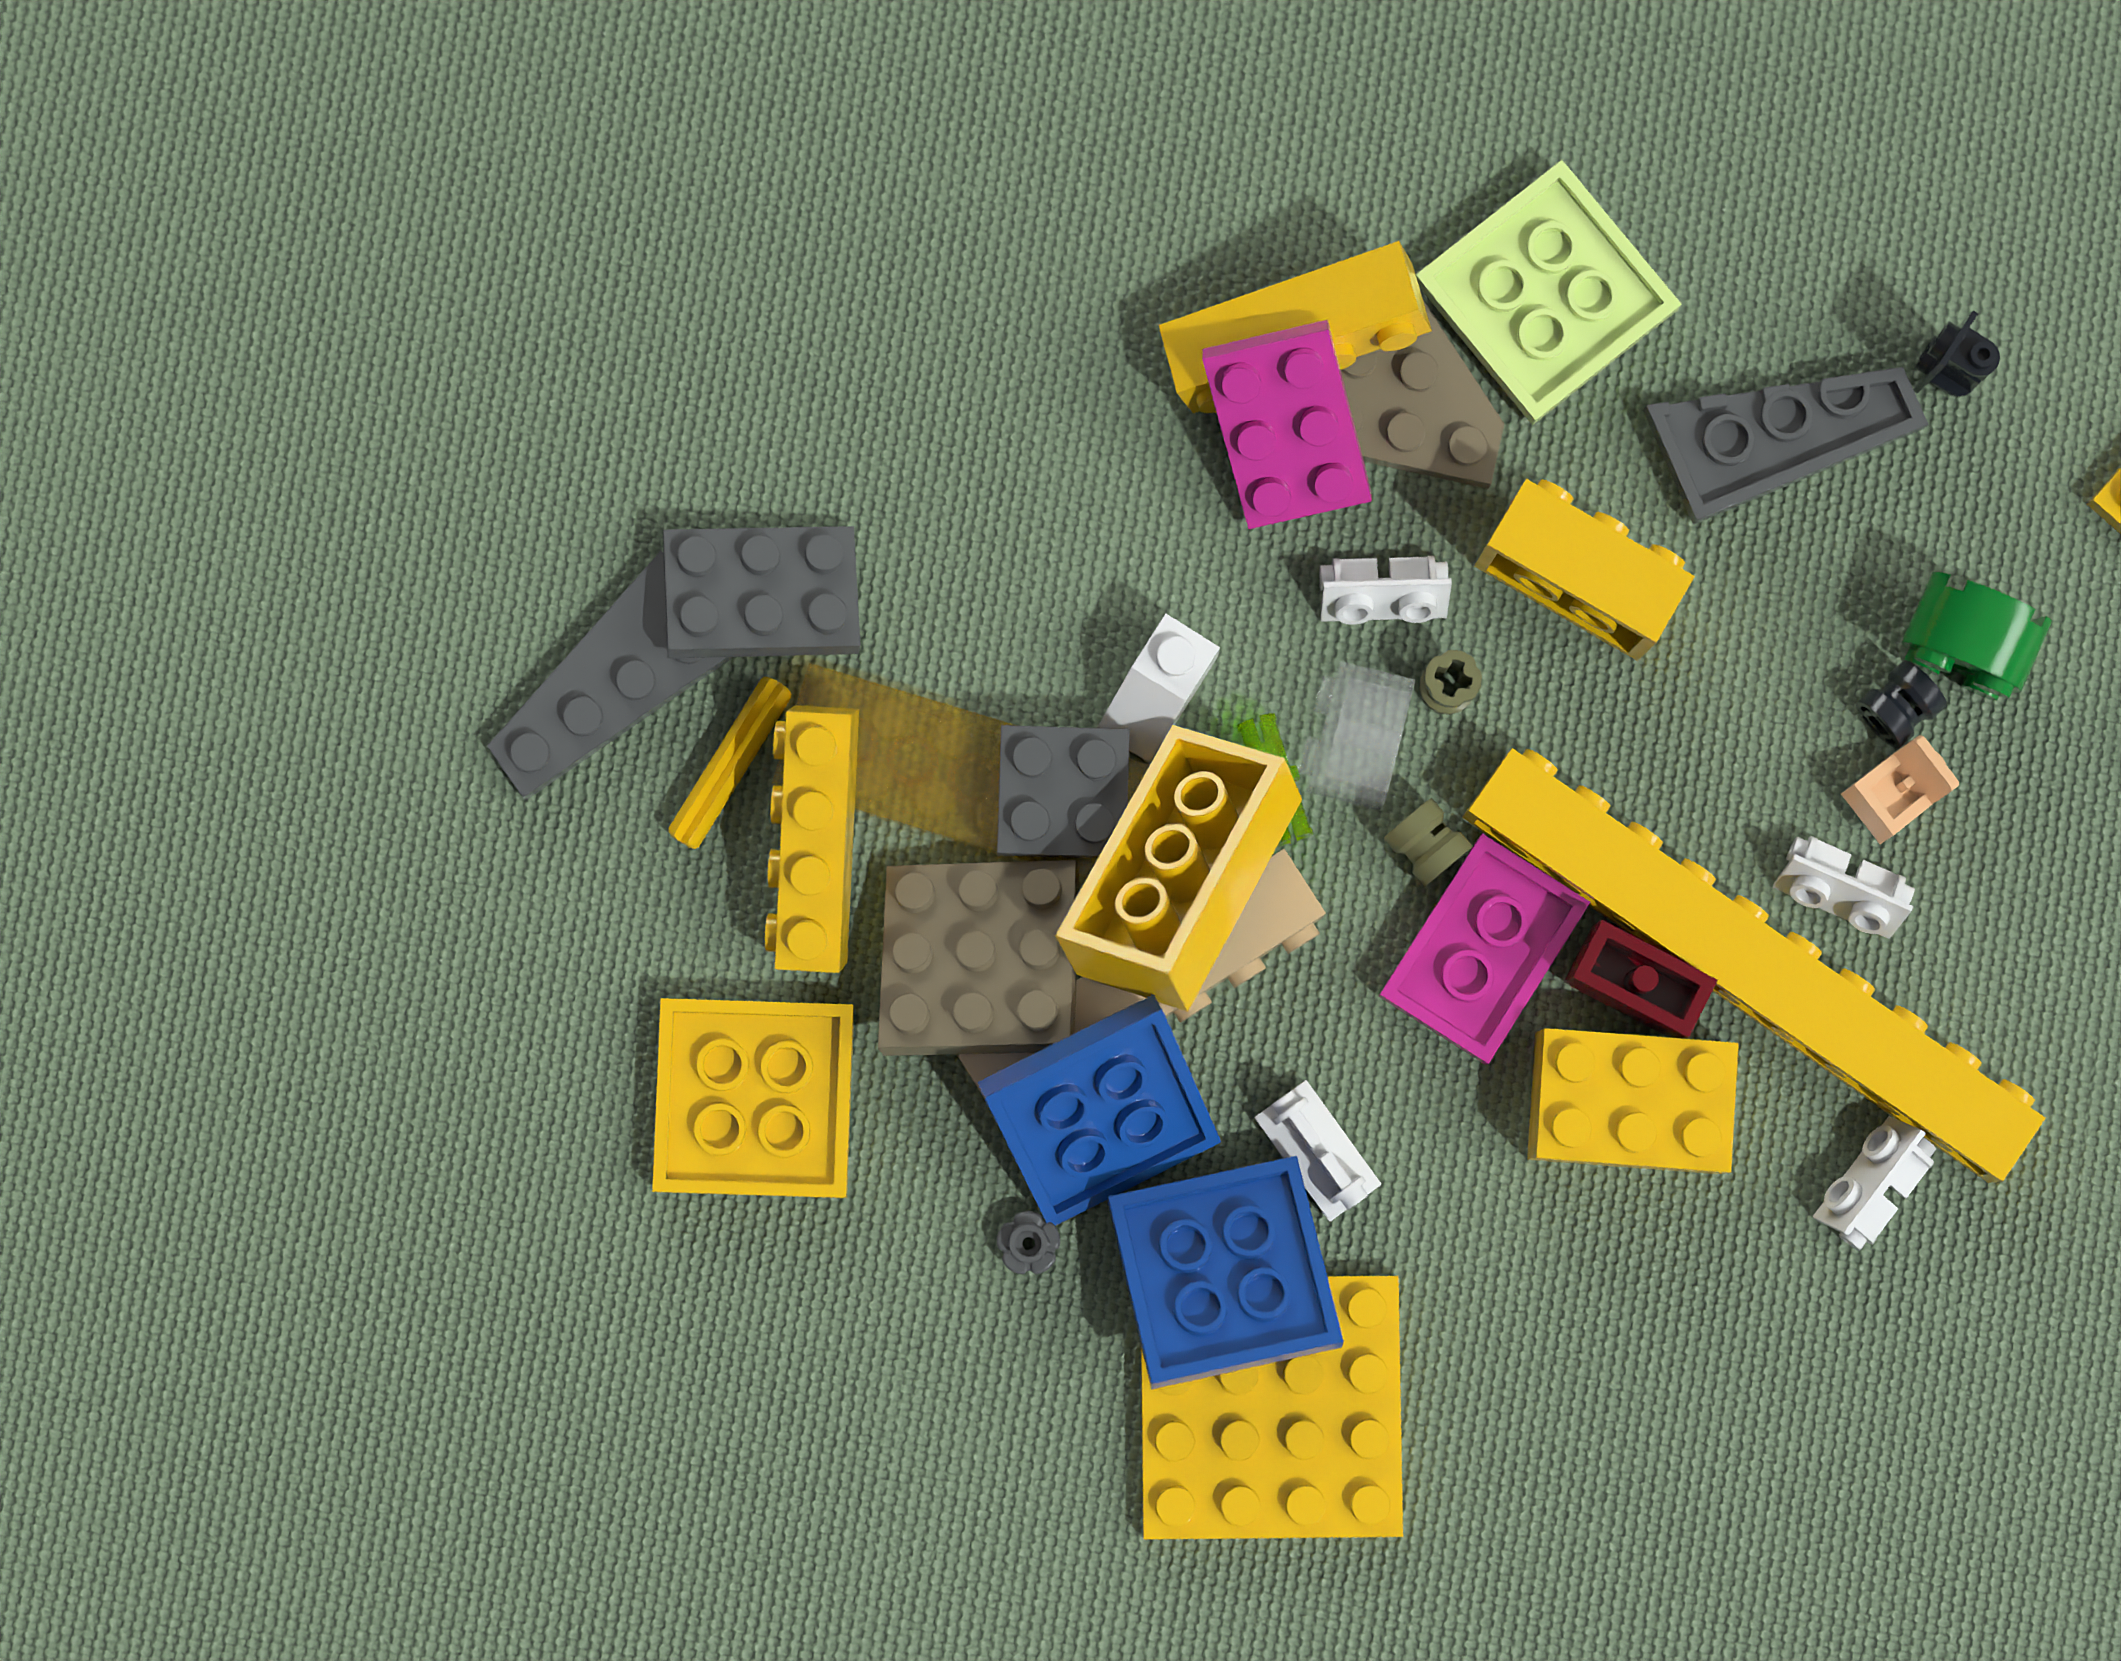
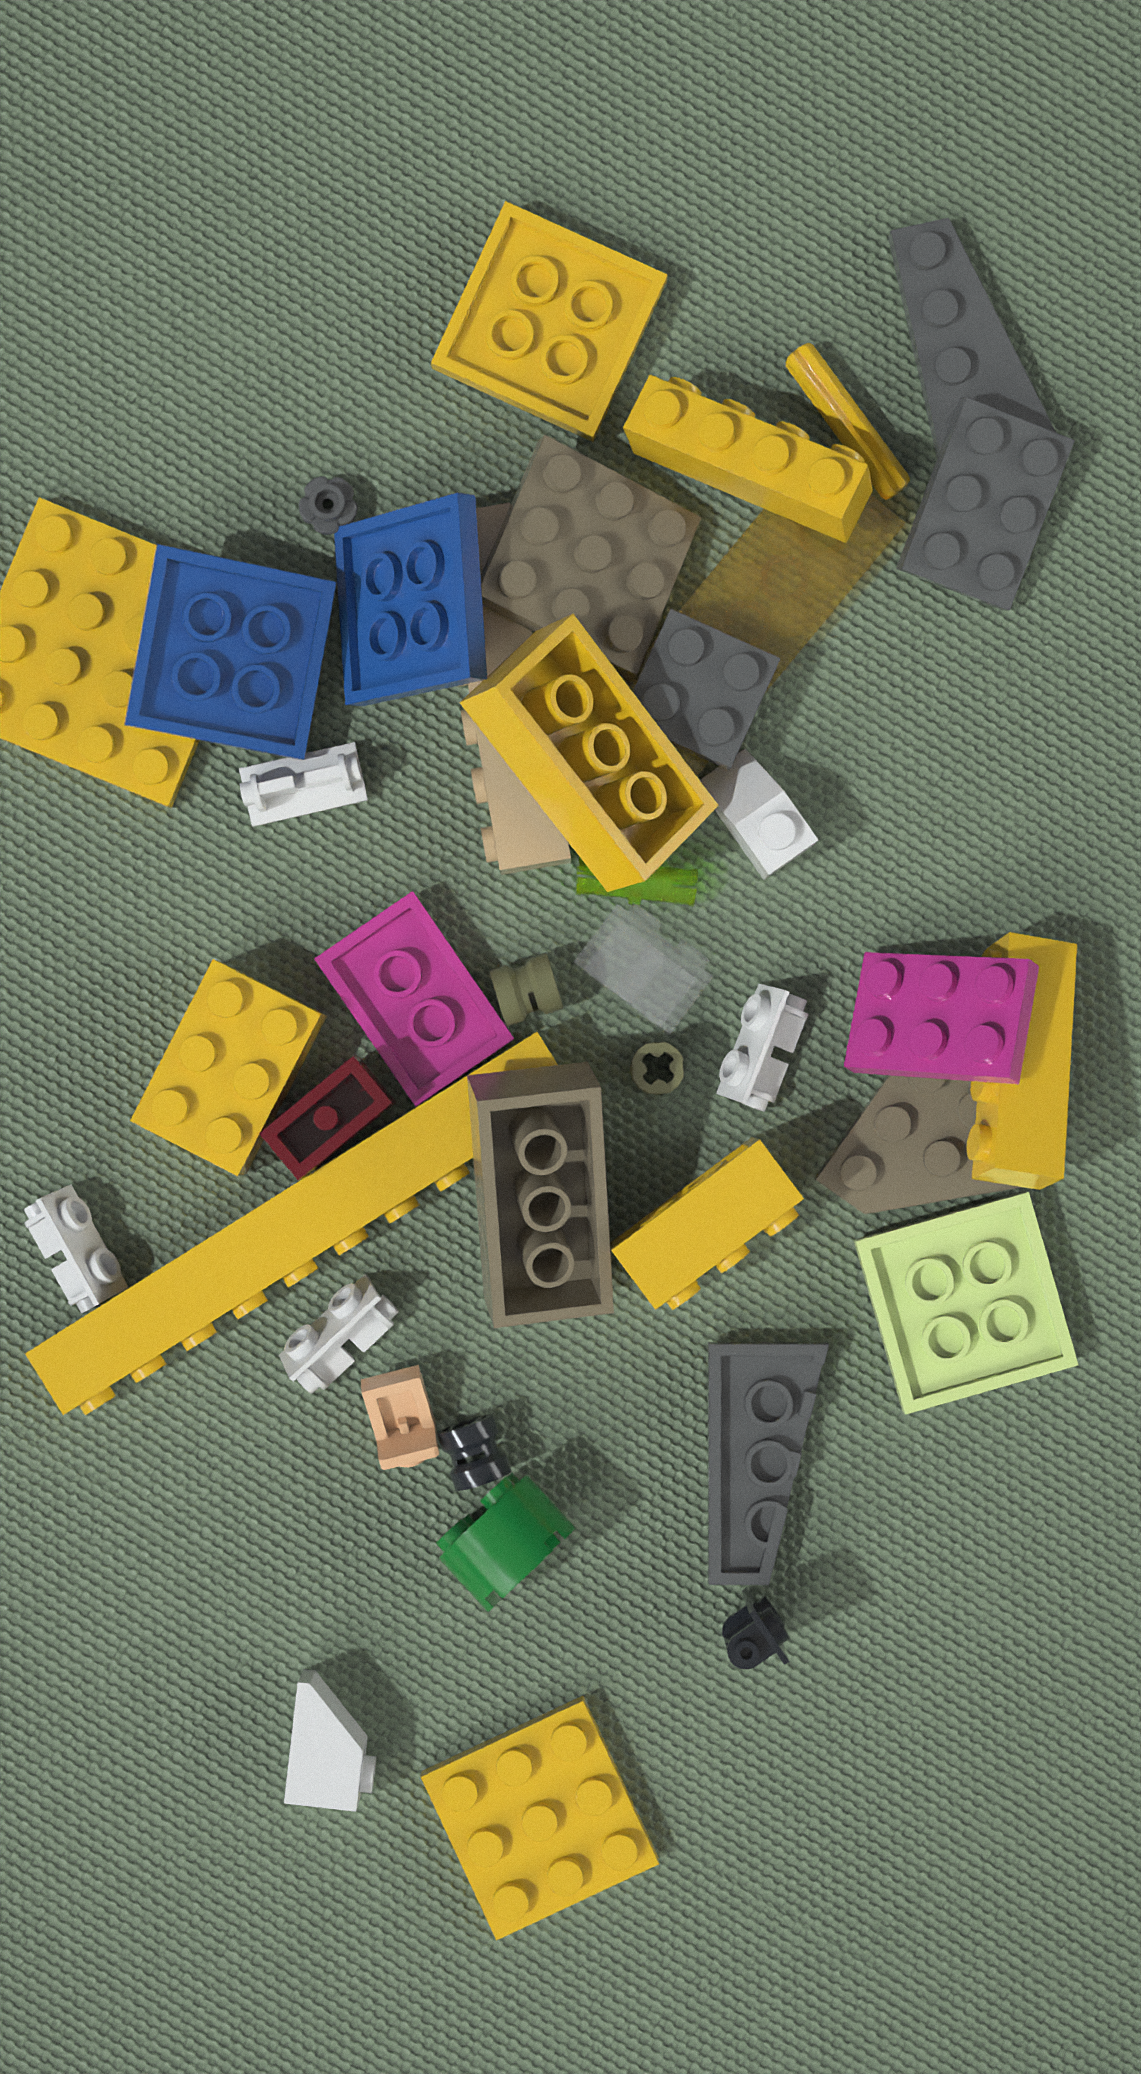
camera: 120 degrees right, 5 degrees up
(1627, 737) = (541, 1193): none -> dark tan brick

